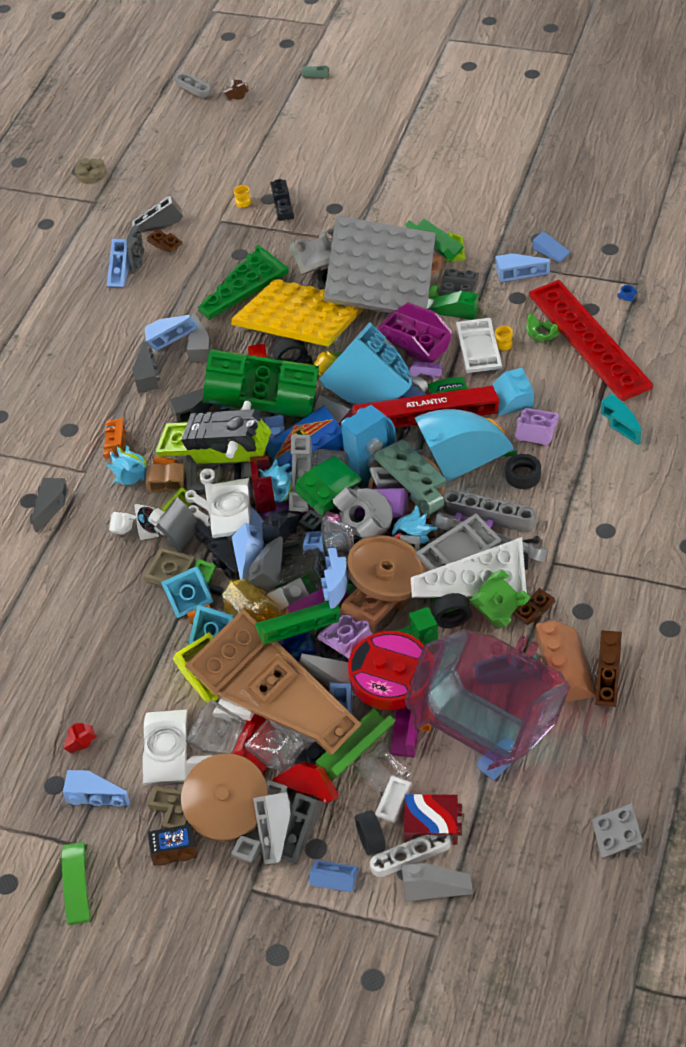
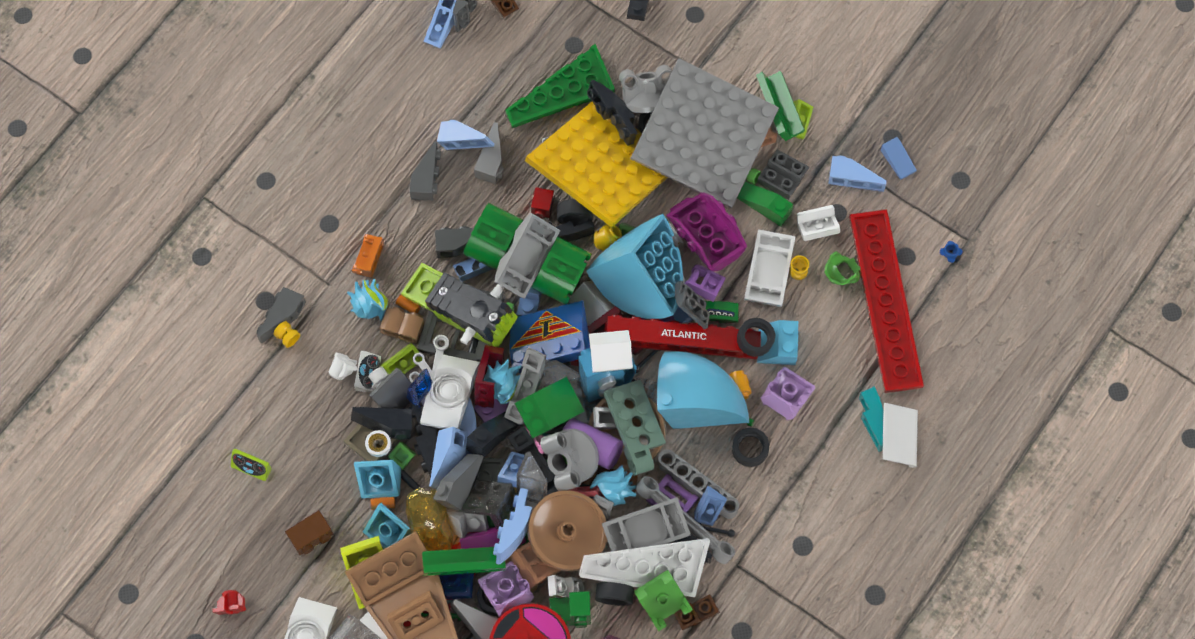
camera: 15 degrees right, 20 degrees up
(58, 514) = (286, 334): none -> yellow wheel
(59, 622) = (250, 465): none -> slope
(137, 656) = (309, 533): none -> reddish brown brick
(178, 545) = (393, 421): none -> black slope
(178, 561) = (378, 437): none -> piece
(199, 510) = (419, 387): none -> clear blue slope
(261, 373) = (526, 255): none -> light grey slope
(293, 275) = (613, 107): none -> black slope
(370, 409) = (610, 351): none -> white slope
(396, 619) = (561, 586): none -> white slope
(422, 375) = (691, 304): none -> dark grey slope
(491, 377) = (764, 326): none -> black tyre
(504, 304) = (817, 223): none -> white bracket
(508, 518) = (709, 507): none -> medium blue slope
(651, 422) = (900, 434): none -> white piece

